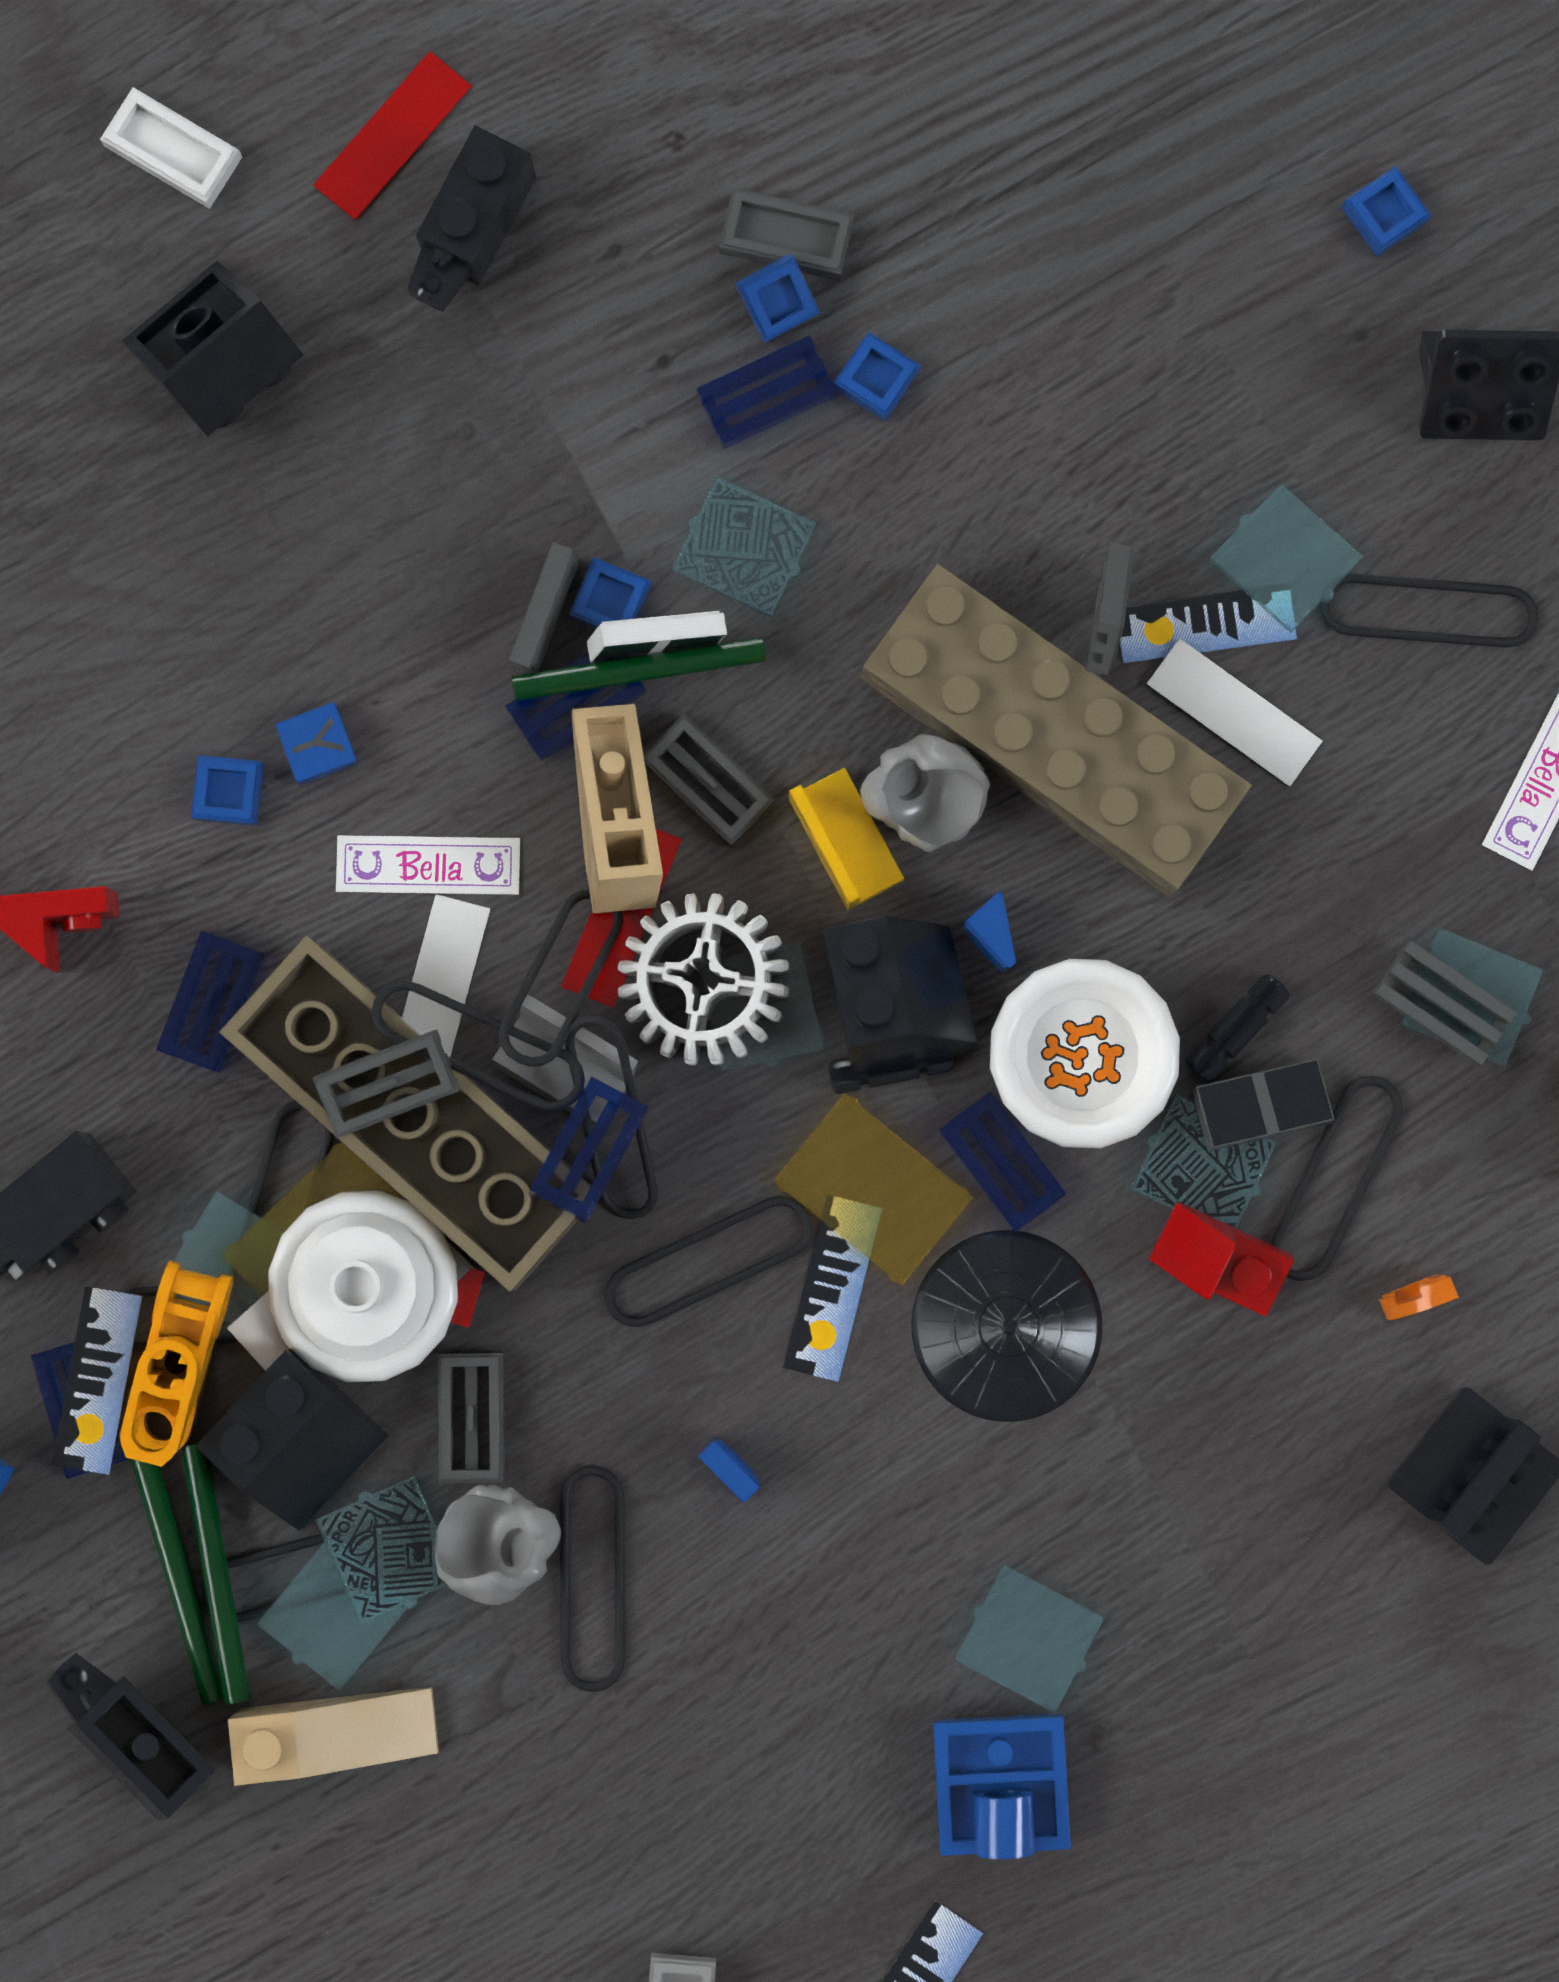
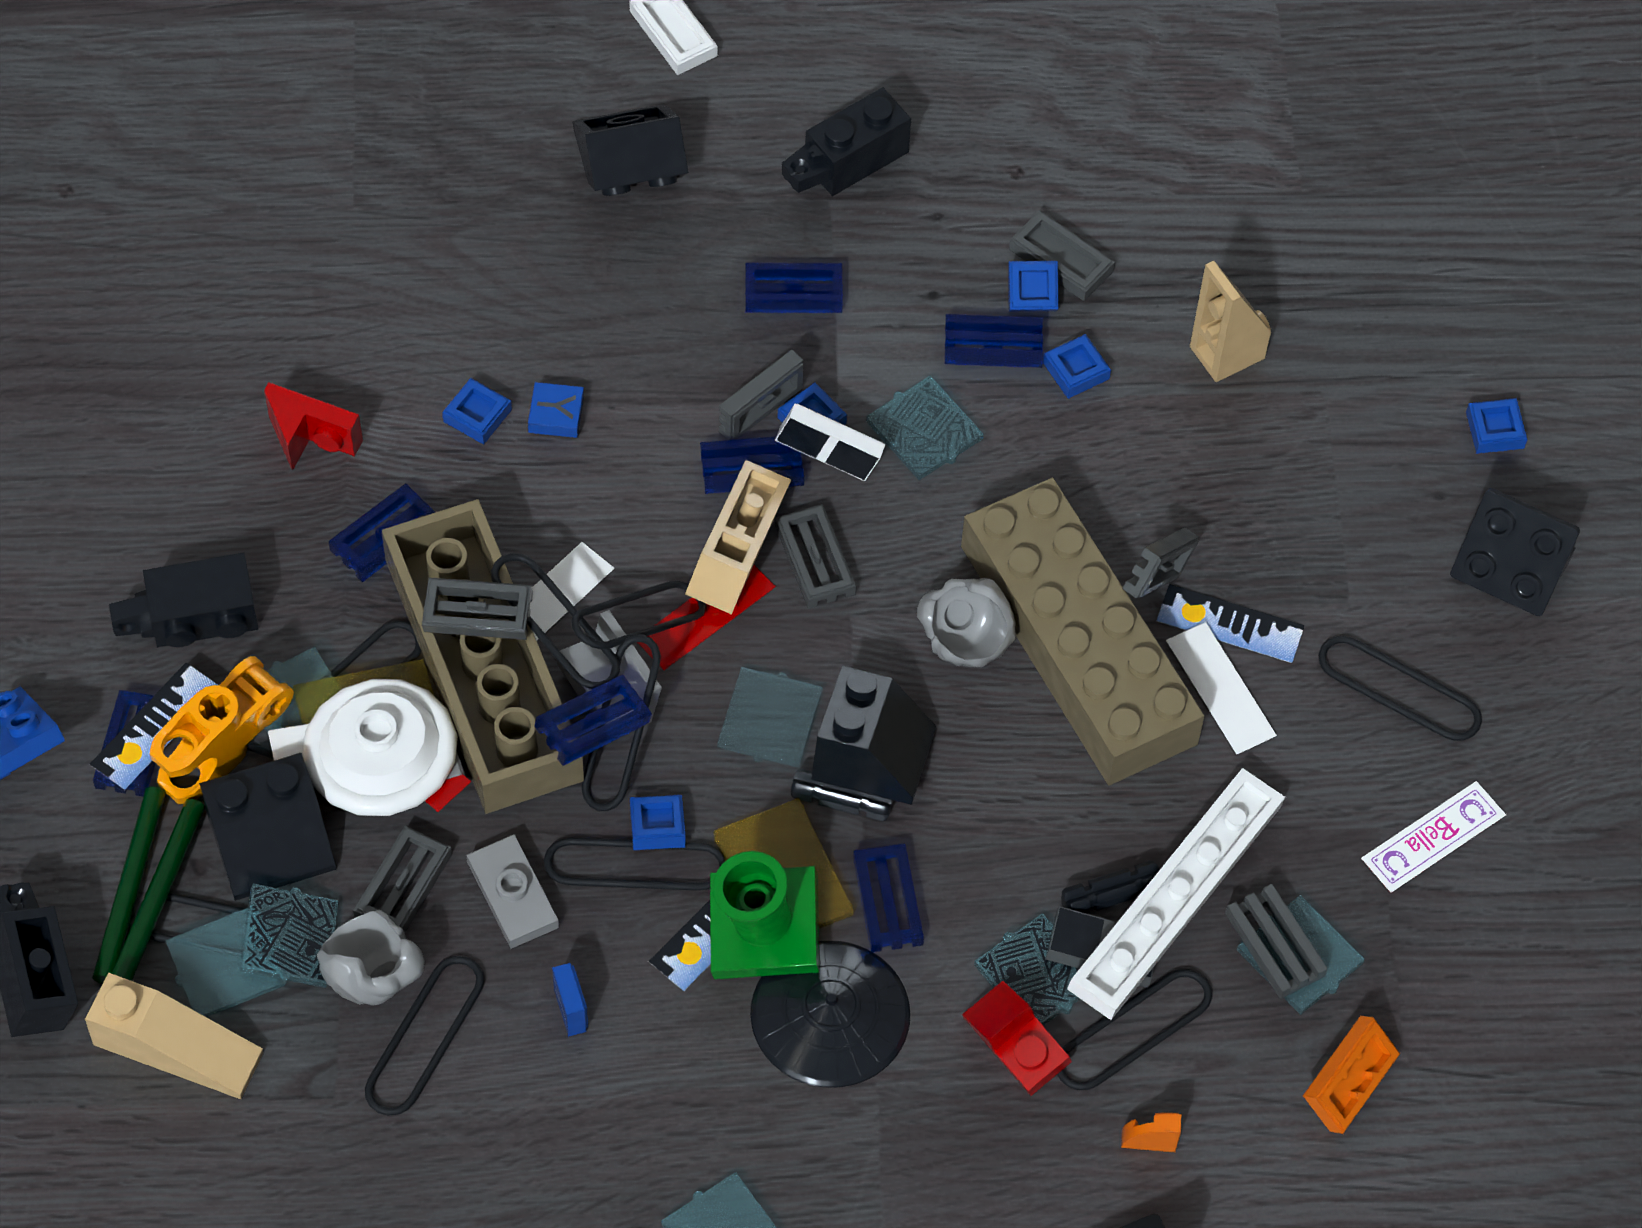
camera: 25 degrees right, 25 degrees down
(392, 135) = (825, 86): red sticker -> none
(428, 865) = (587, 521): white sticker -> none
(512, 459) = (794, 294): none -> clear blue tile
(595, 1367) = (512, 891): none -> light grey plate
(638, 669) = (806, 458): dark green bar -> none
(706, 948) = (737, 694): white gear -> none
(708, 1204) = (657, 822): none -> blue tile
(845, 838) = (892, 632): yellow panel -> none
(909, 1240) = (763, 918): none -> green plant
(991, 933) = (962, 736): blue slope -> none
(1037, 251) = (1226, 327): none -> tan slope
(1084, 1053) = (988, 842): white piece -> none
(1286, 558) = (1310, 606): clear light blue piece -> none
(1317, 1008) = (1175, 894): none -> white plate

